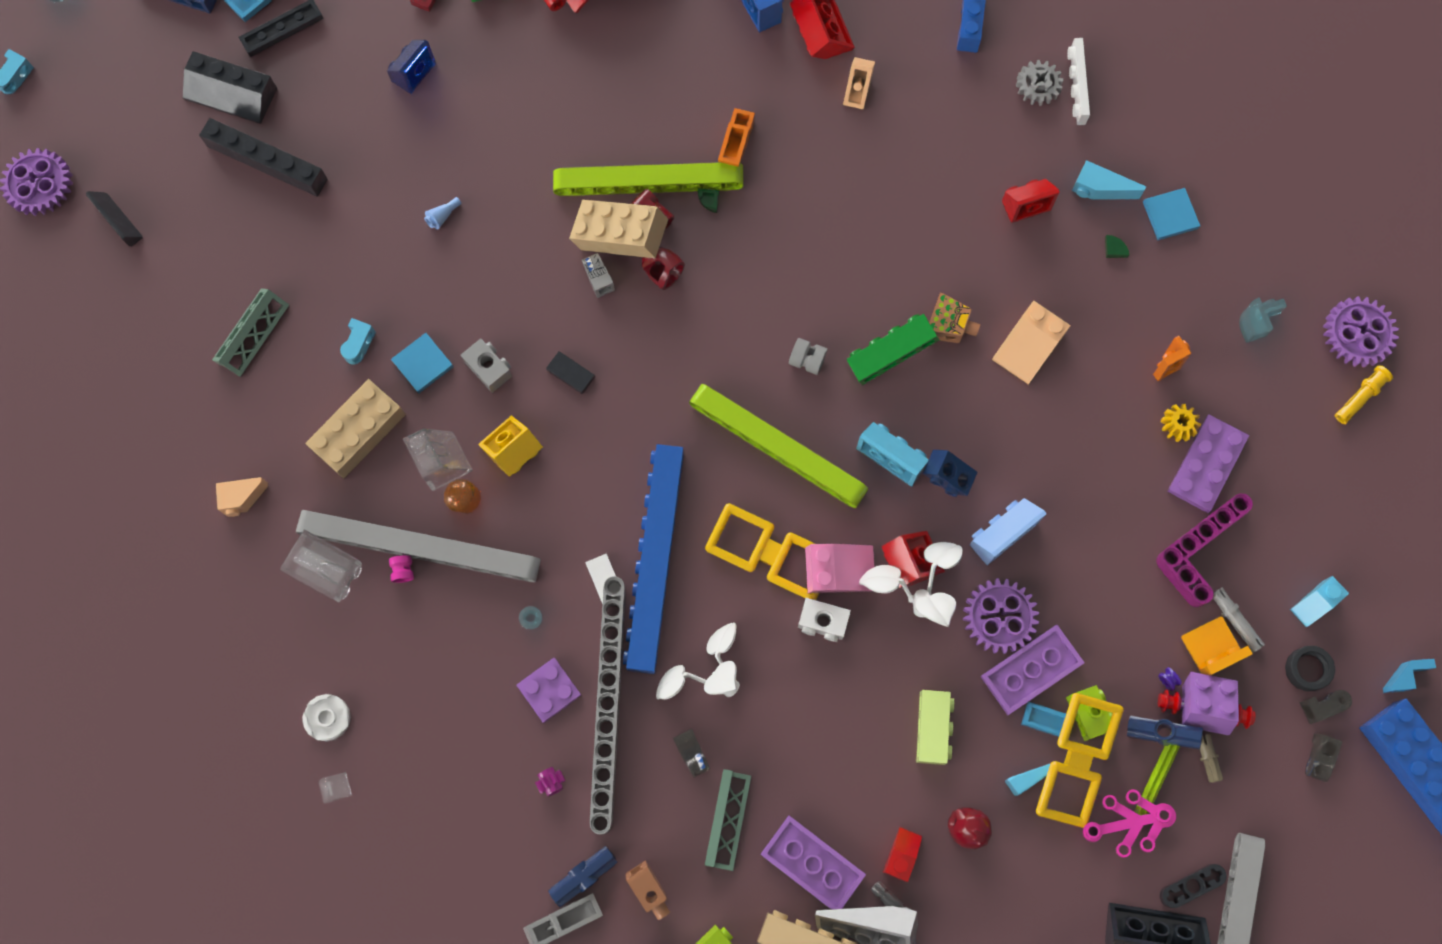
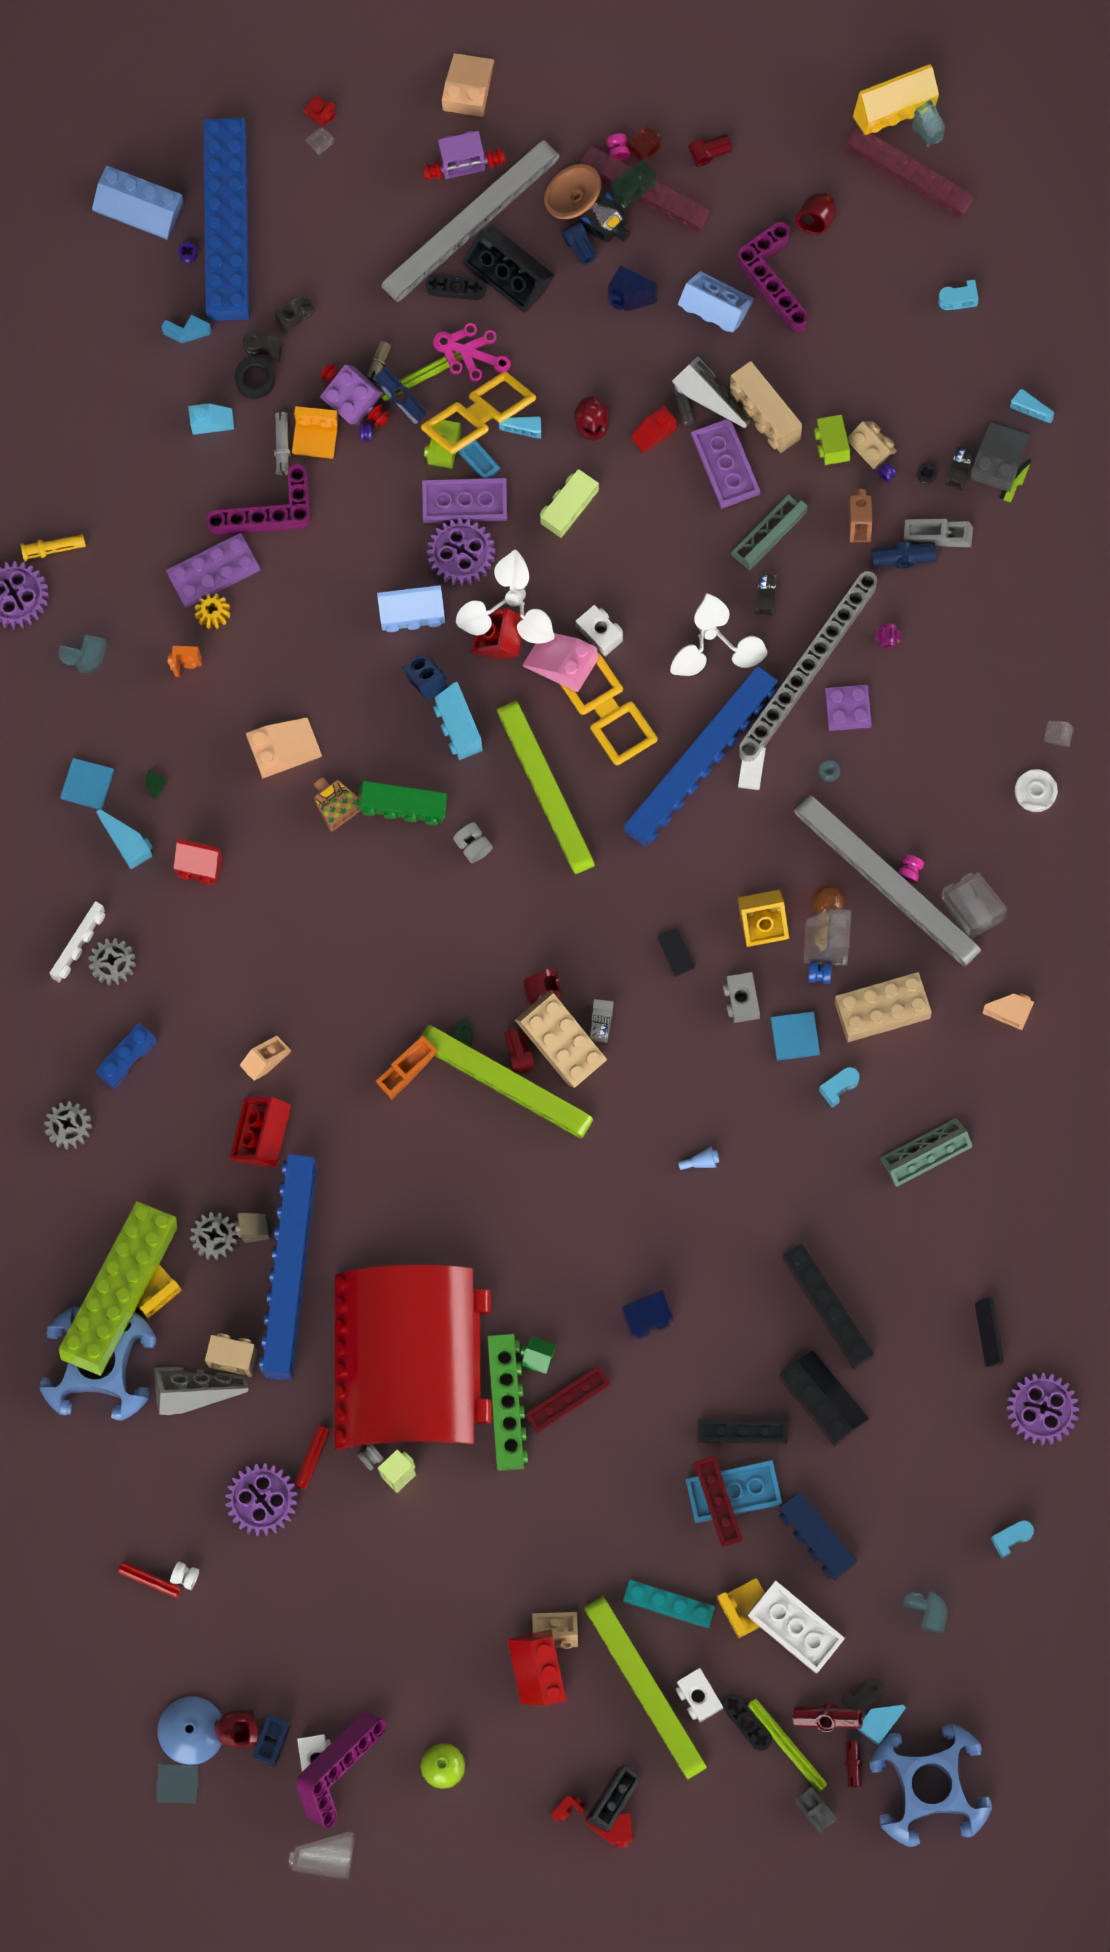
camera: 145 degrees left, 0 degrees up
(434, 420) = (819, 972): none -> blue wheel

